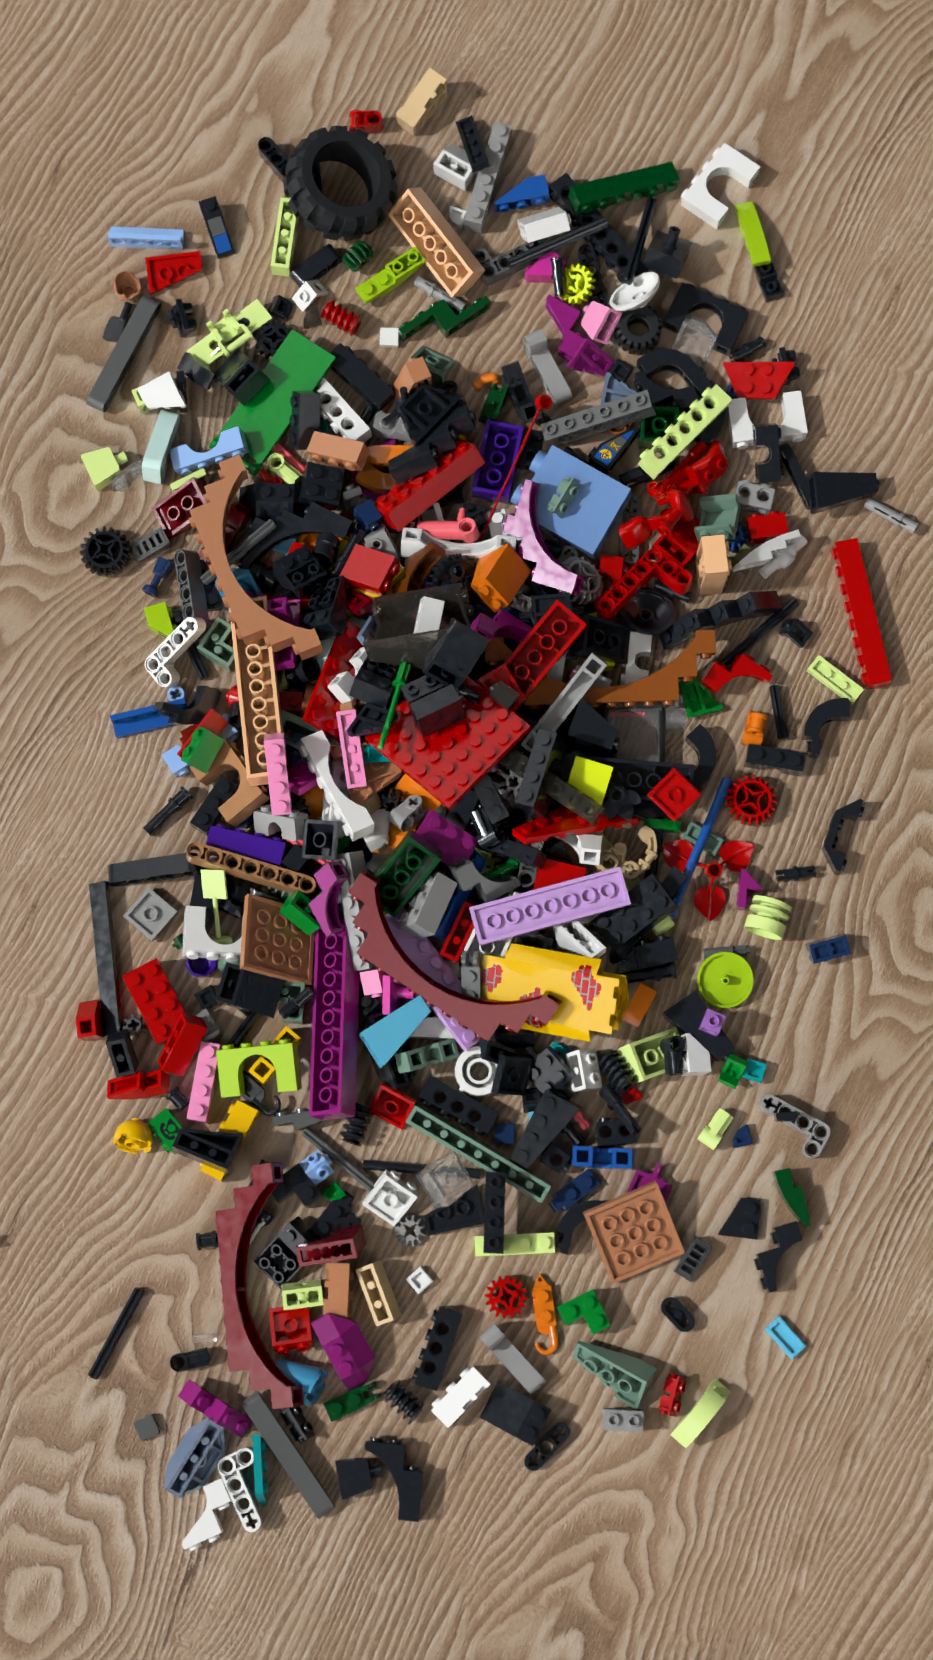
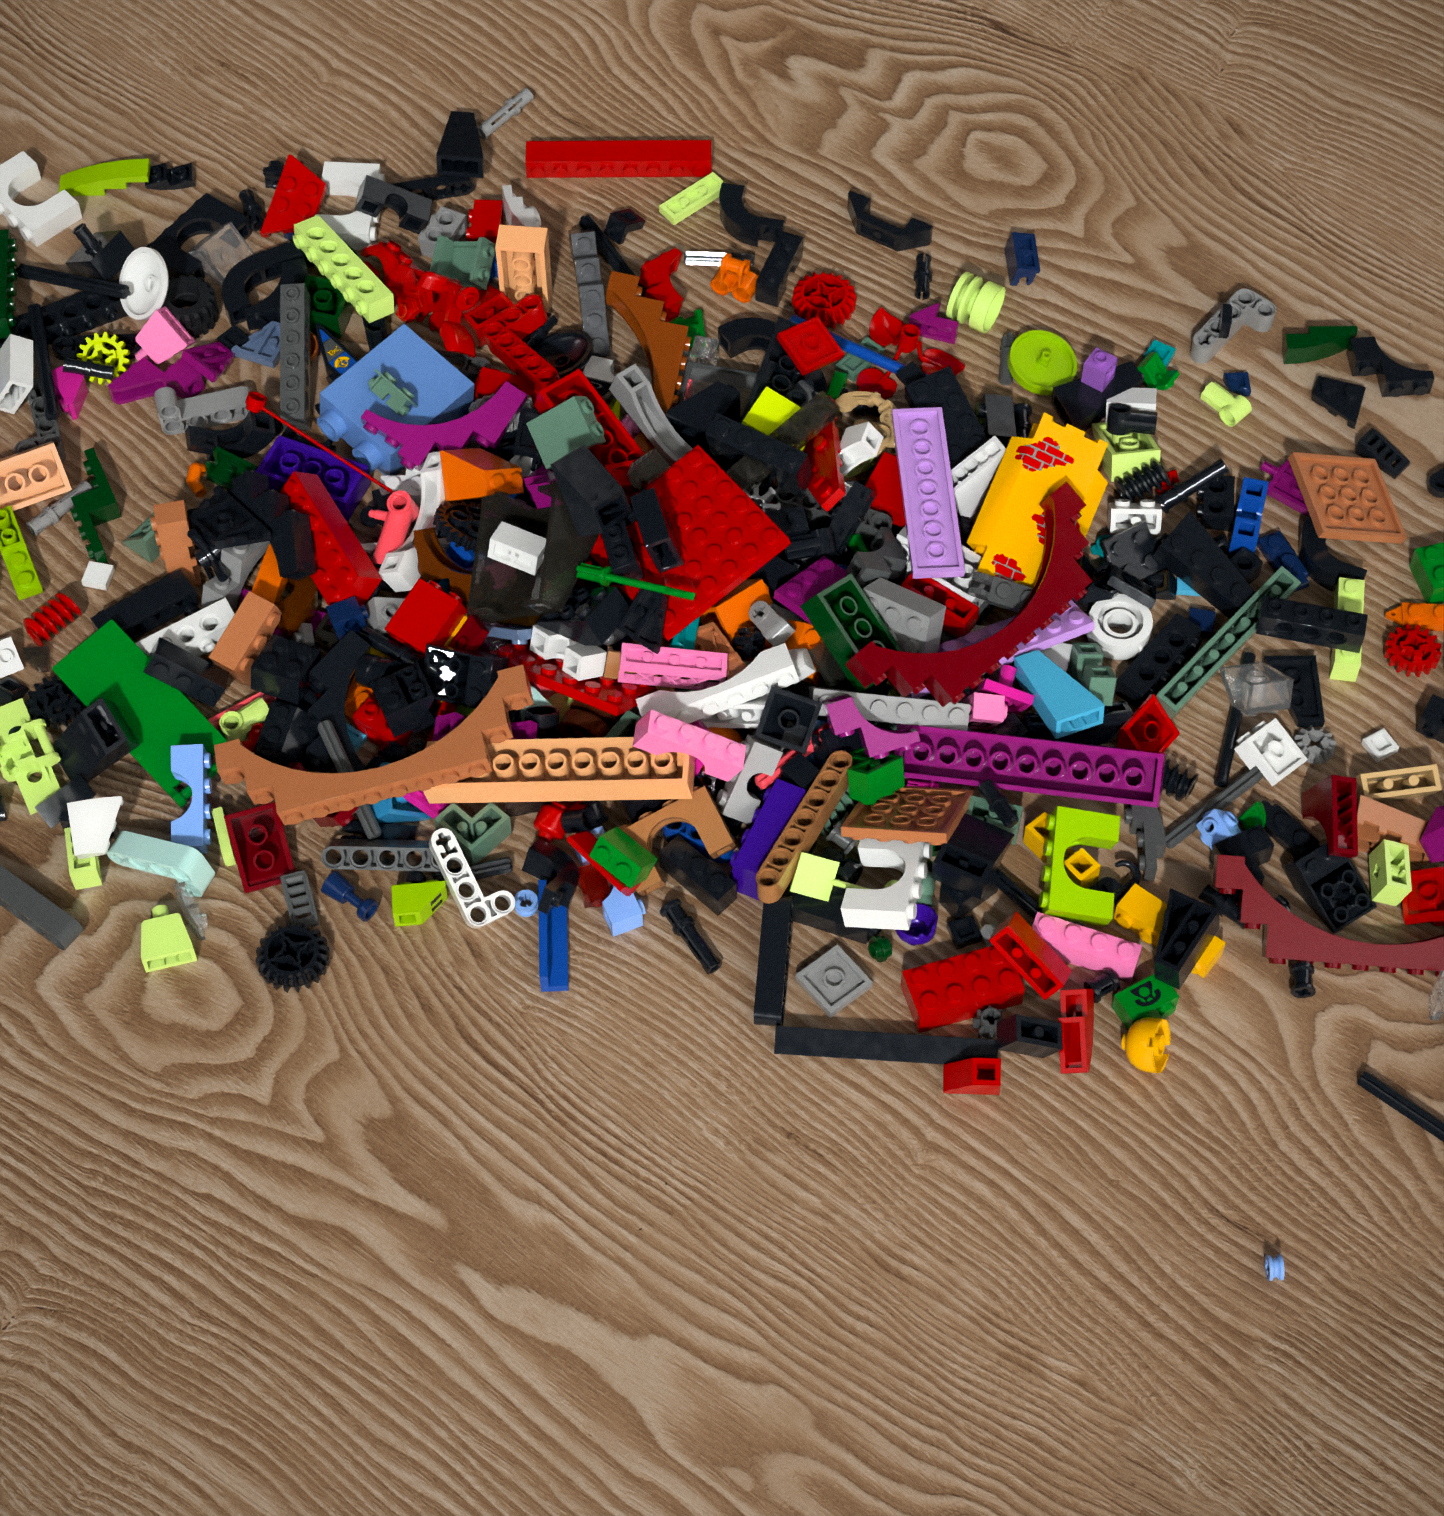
camera: 80 degrees left, 20 degrees down
(350, 1220) = (1294, 806): black plant -> none
(531, 629) = (565, 429): none -> sand green panel

